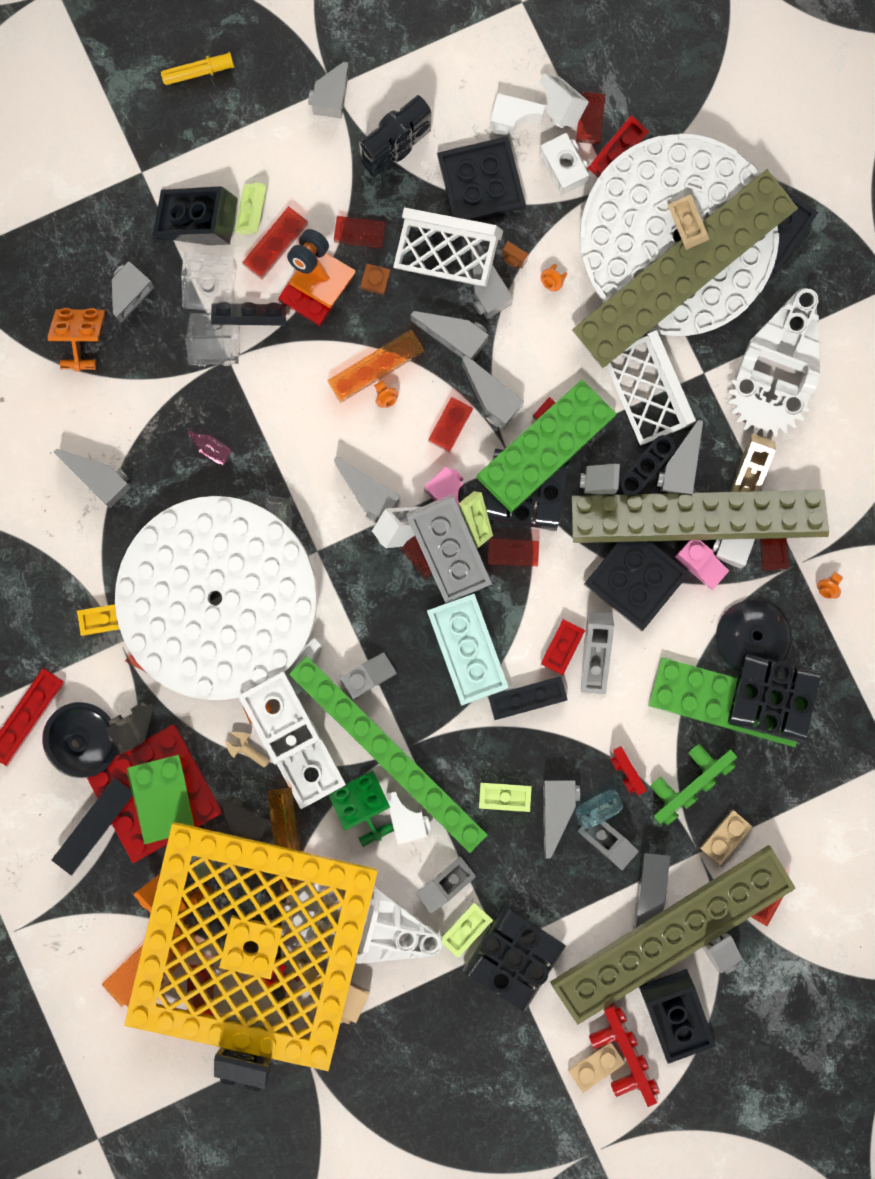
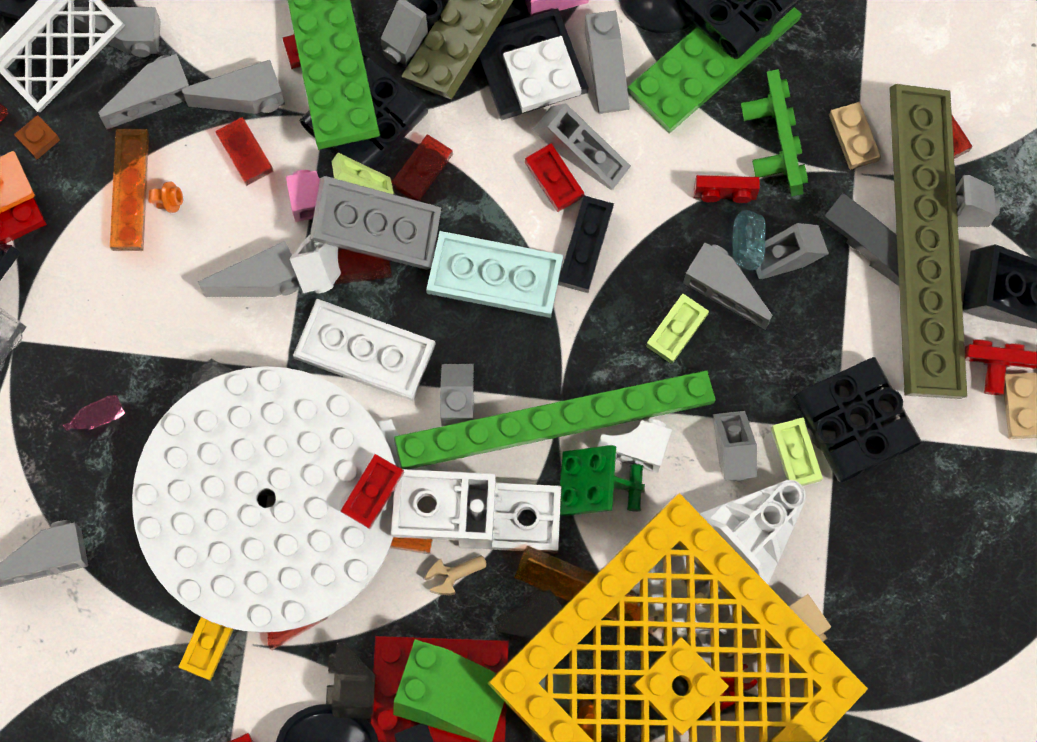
camera: 55 degrees left, 10 degrees down
(257, 666) = (372, 491): none -> red plate
(362, 594) = (364, 350): none -> white tile
(631, 593) = (542, 74): none -> white plate
(670, 632) = (606, 61): none -> light grey slope

